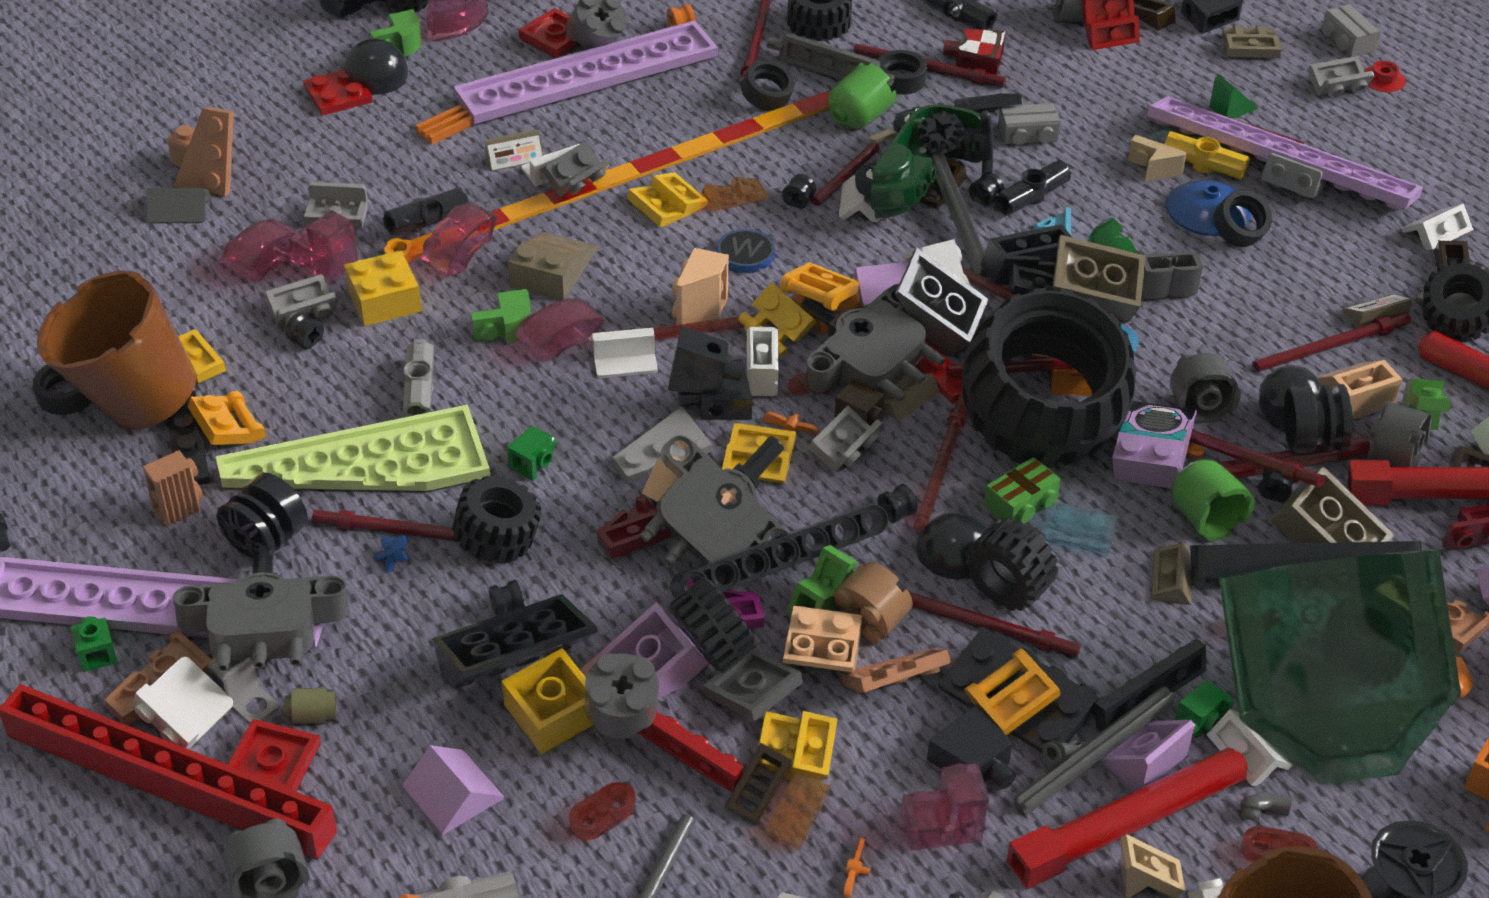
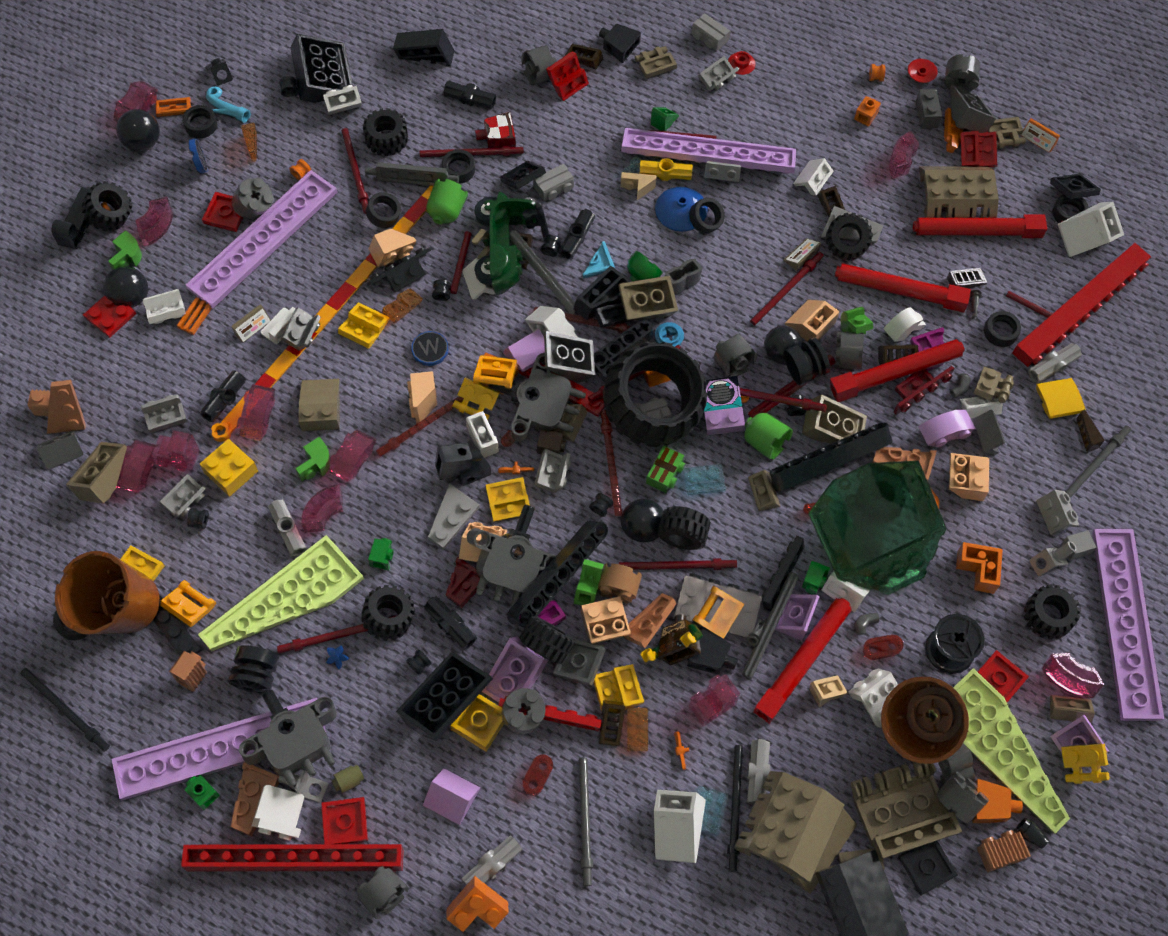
camera: 25 degrees left, 20 degrees up
(203, 239) = (99, 473): none -> dark tan slope
(413, 98) = (164, 306): none -> white bracket
(480, 370) = (321, 508): none -> clear pink brick
(583, 568) = (450, 622): none -> black piece
(624, 352) = (398, 458): white panel -> none
(754, 118) = (390, 246): none -> light nougat slope
(756, 158) = (404, 273): none -> black bracket
(920, 712) = (677, 642): none -> torso
(935, 142) = (512, 229): black gear -> none

